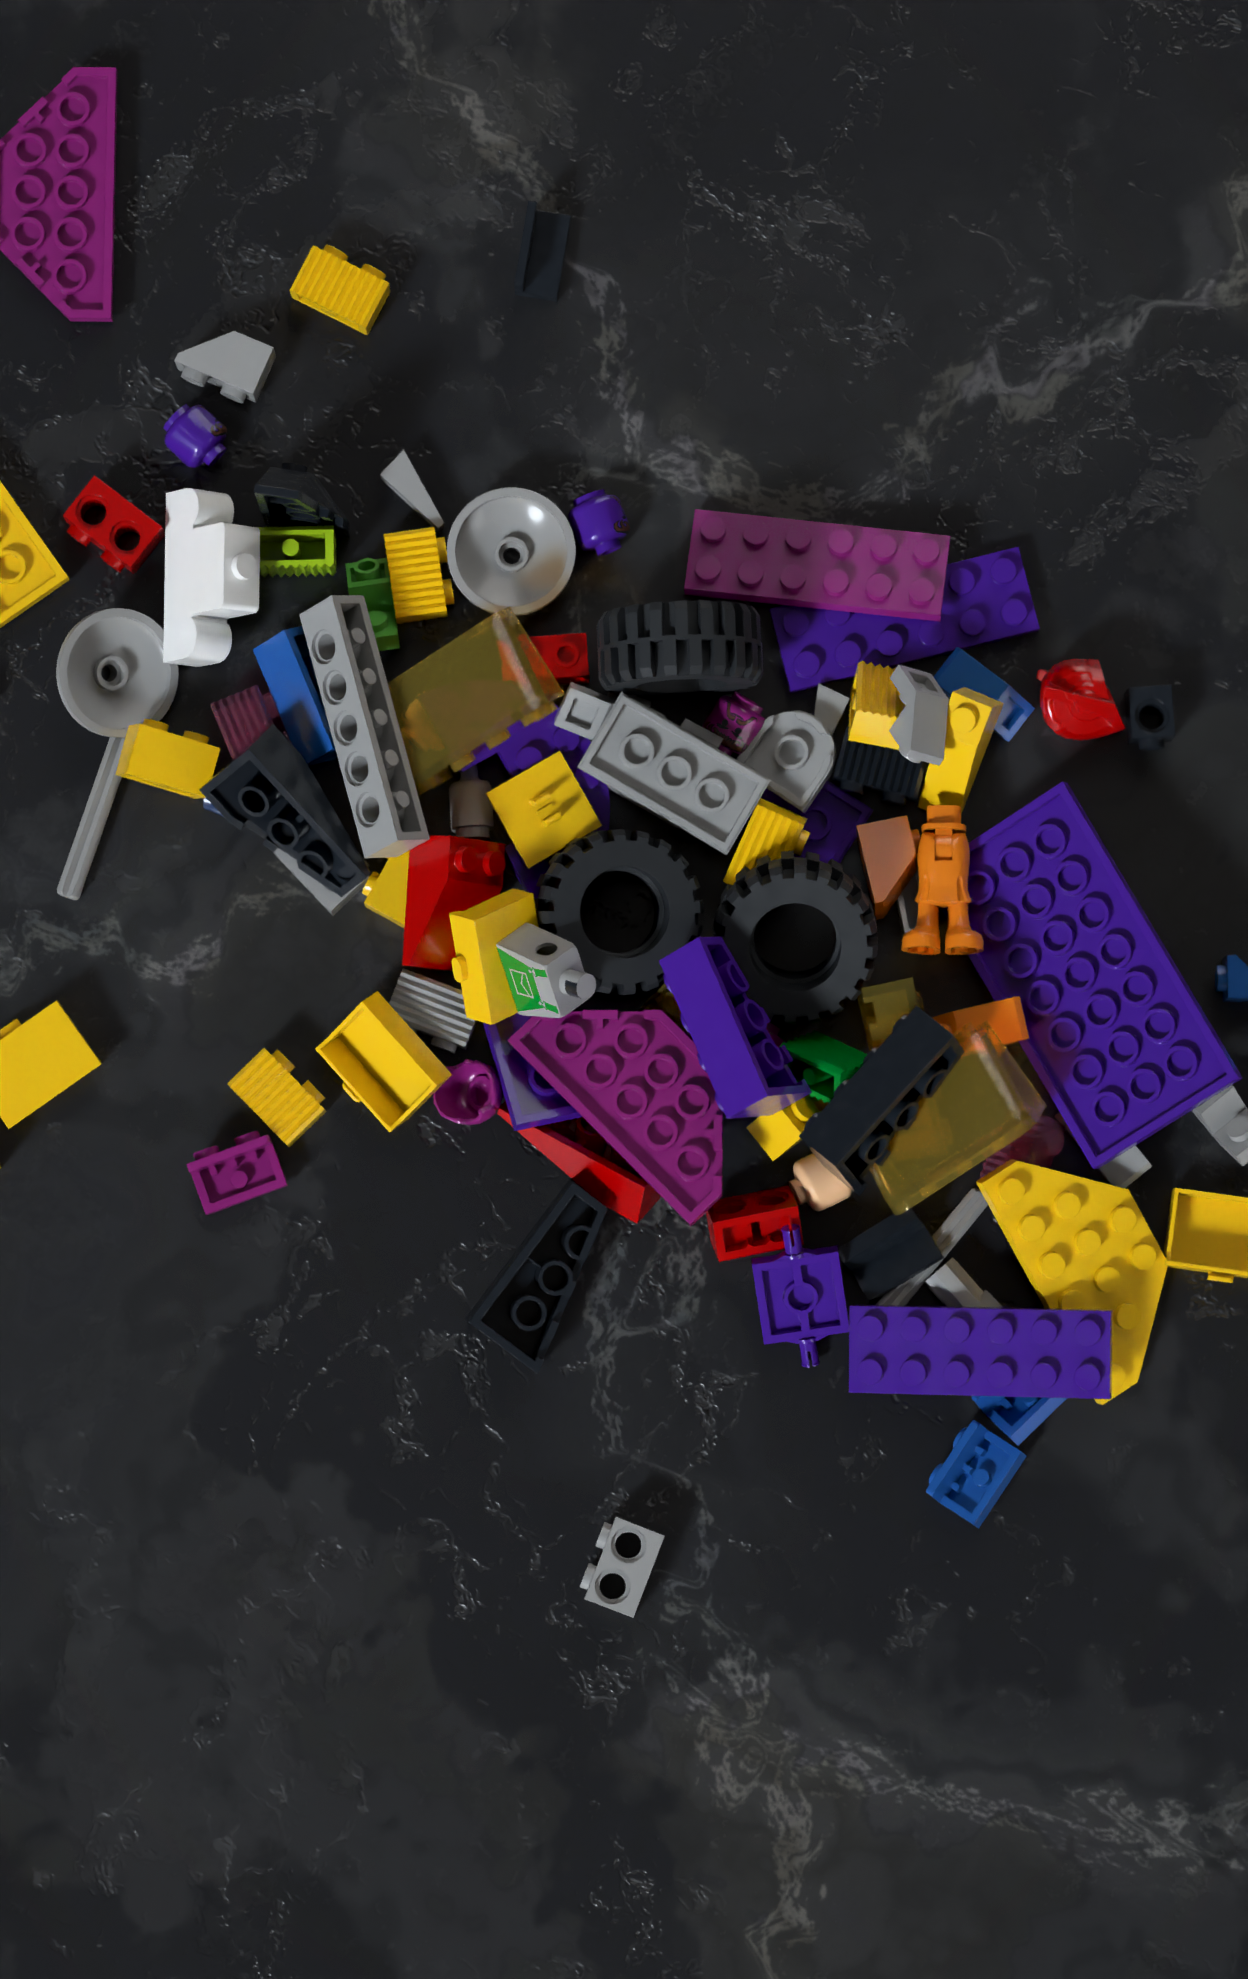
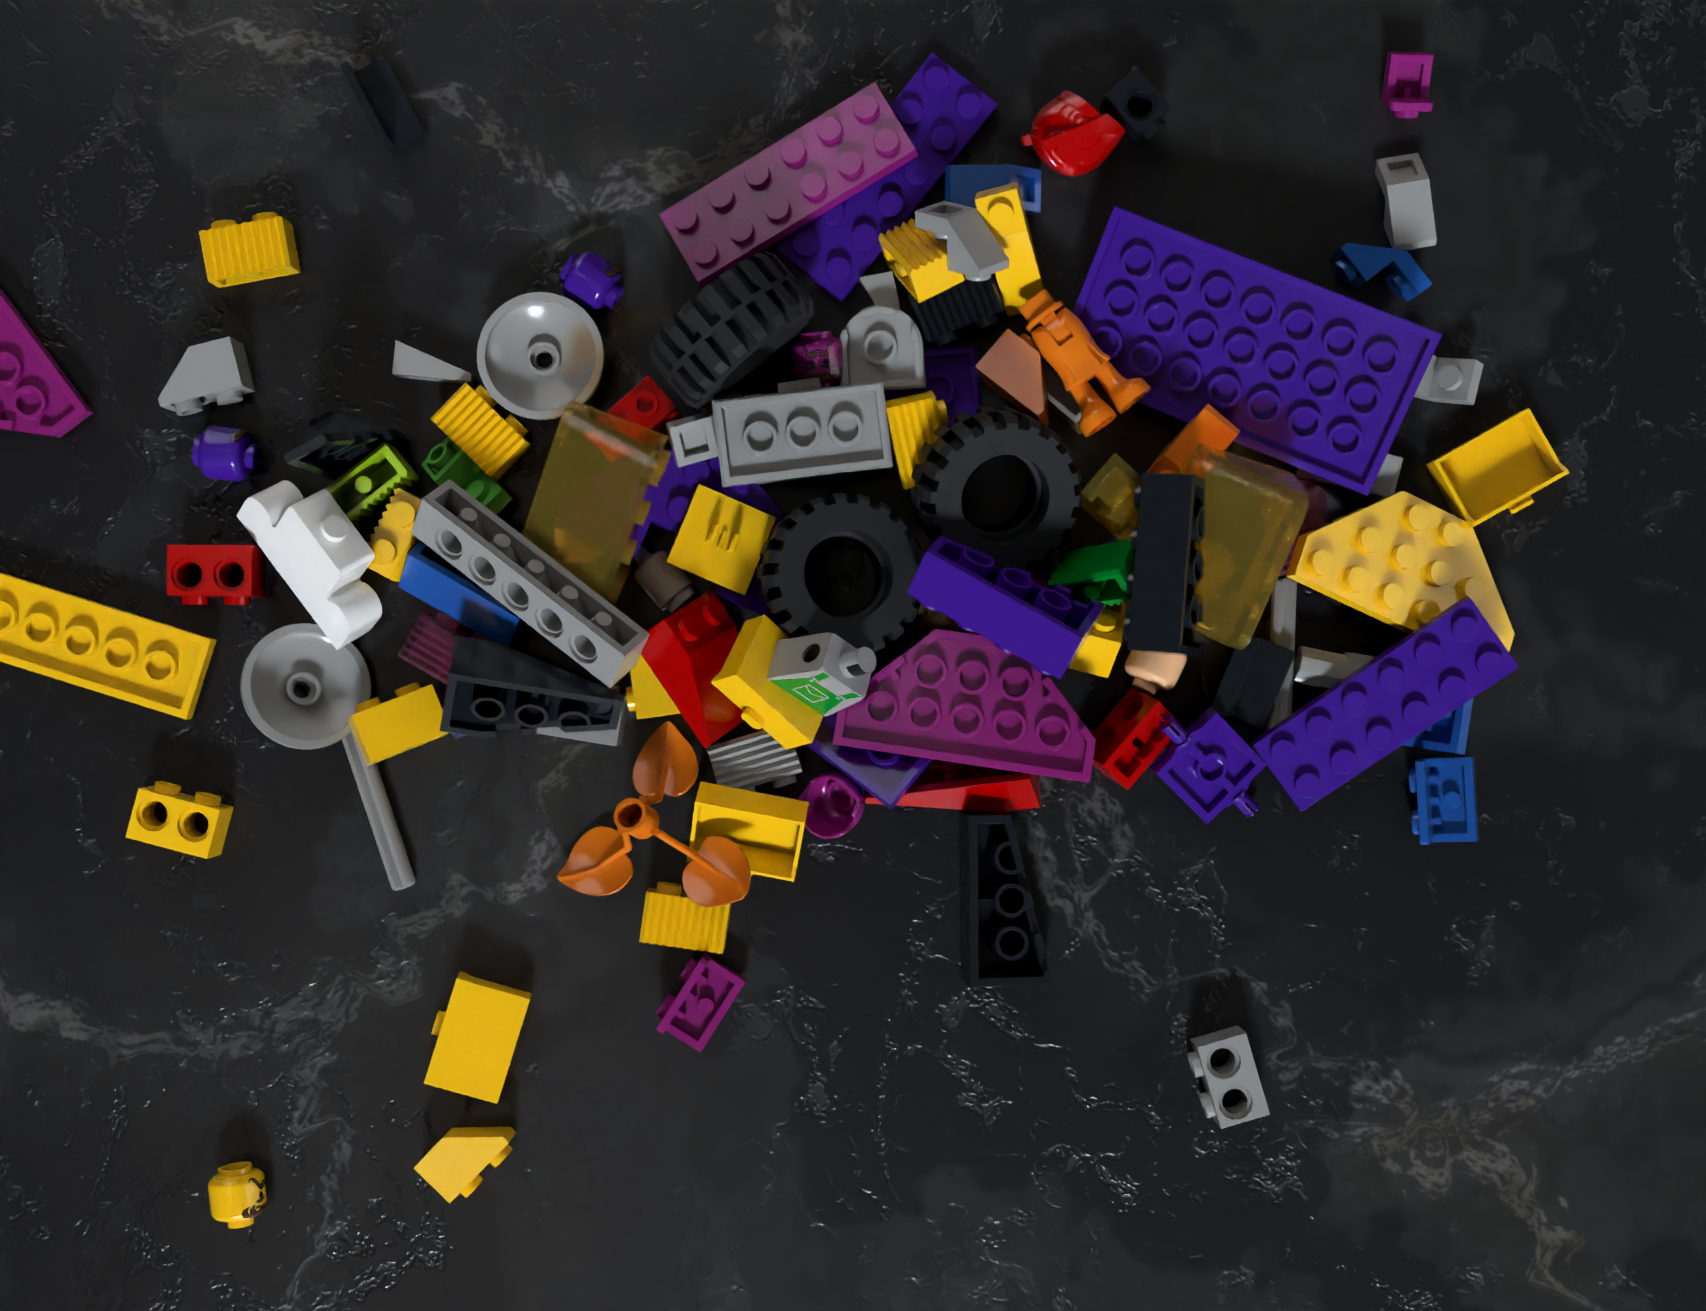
camera: 30 degrees left, 5 degrees up
(244, 993) = (600, 856): none -> orange plant
(282, 607) = (393, 535): none -> yellow brick

